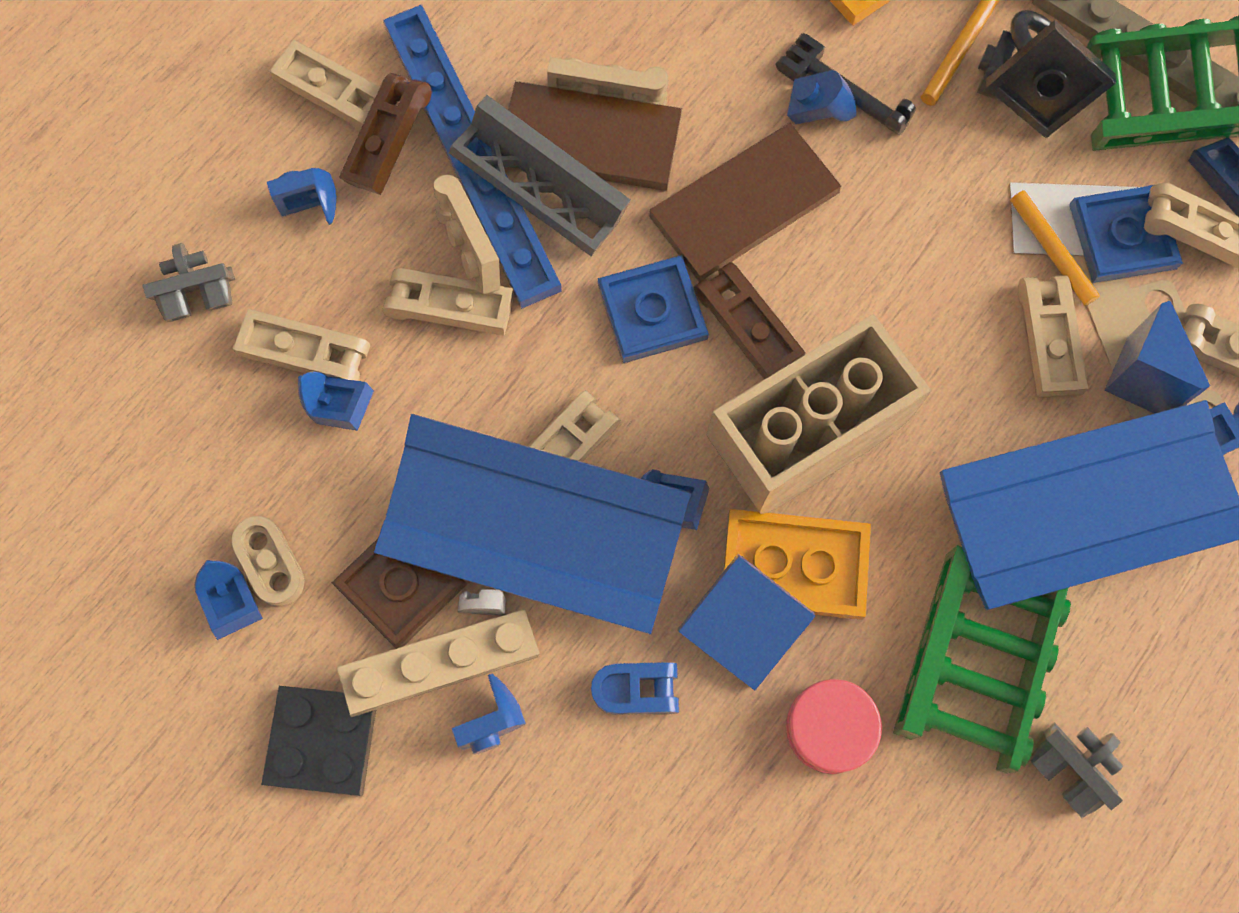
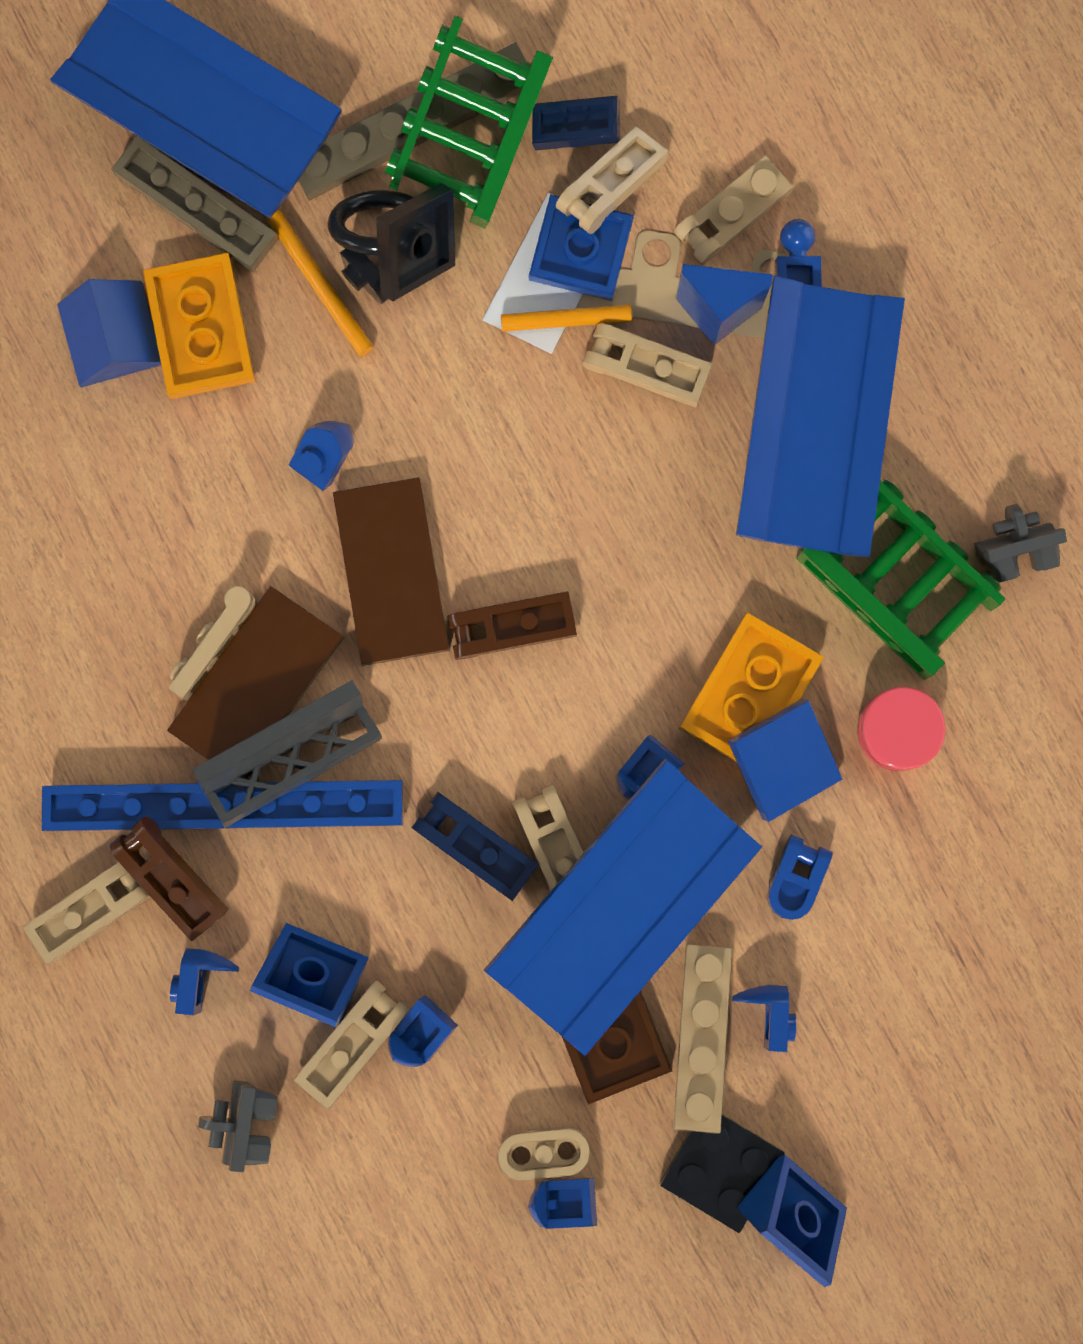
camera: 65 degrees left, 10 degrees up
(294, 833) = (797, 1217): none -> blue slope
(347, 283) = (310, 975): none -> blue slope
(448, 302) = (368, 889): tan plate -> none
(467, 232) = (312, 845): tan plate -> none
(486, 602) = (665, 980): white tile -> none
(529, 378) = (476, 847): none -> dark blue plate
(652, 309) = (457, 706): blue tile -> none
(805, 59) = (276, 442): black hinge -> none
(817, 414) = (644, 616): tan brick -> none

